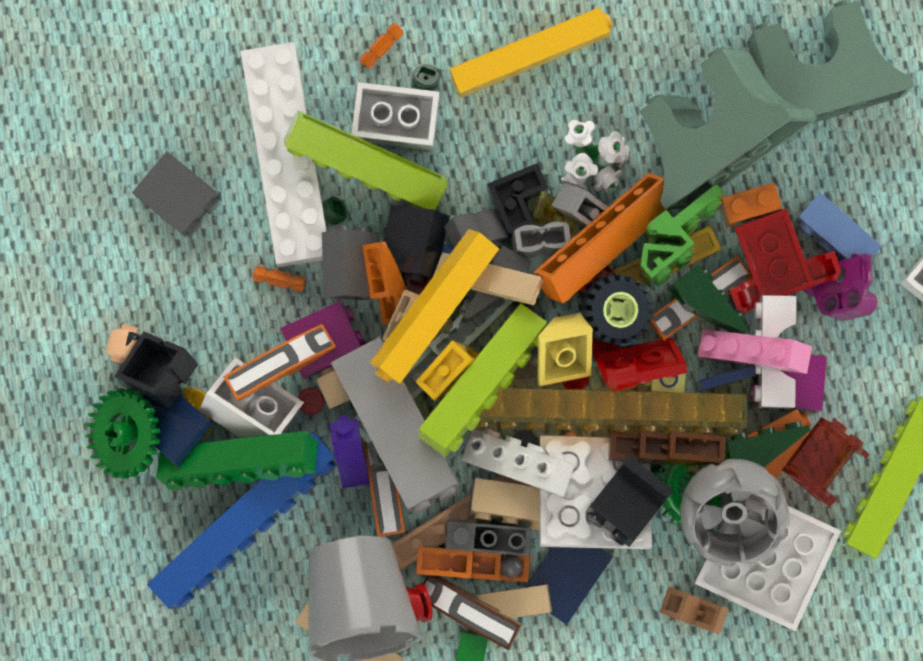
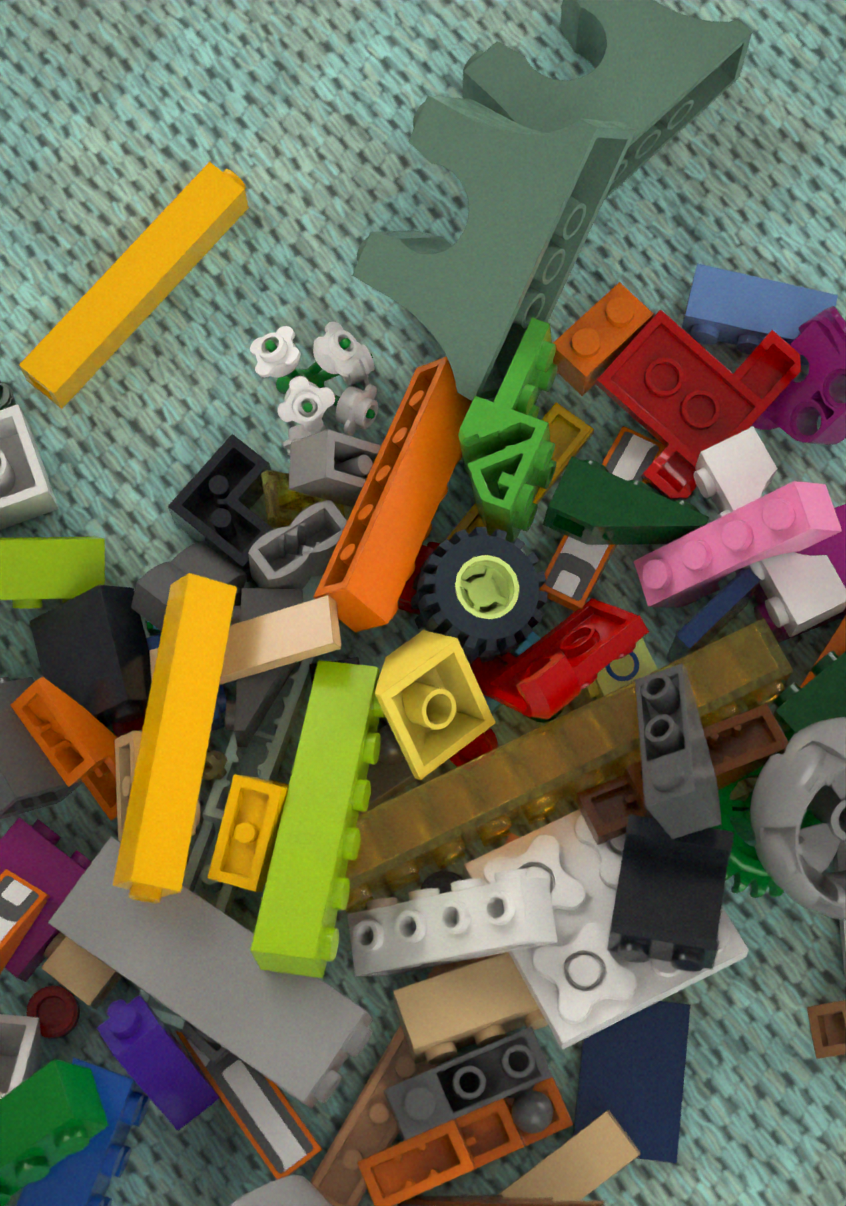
camera: 30 degrees left, 10 degrees down
(665, 439) = (675, 754): none -> dark grey slope

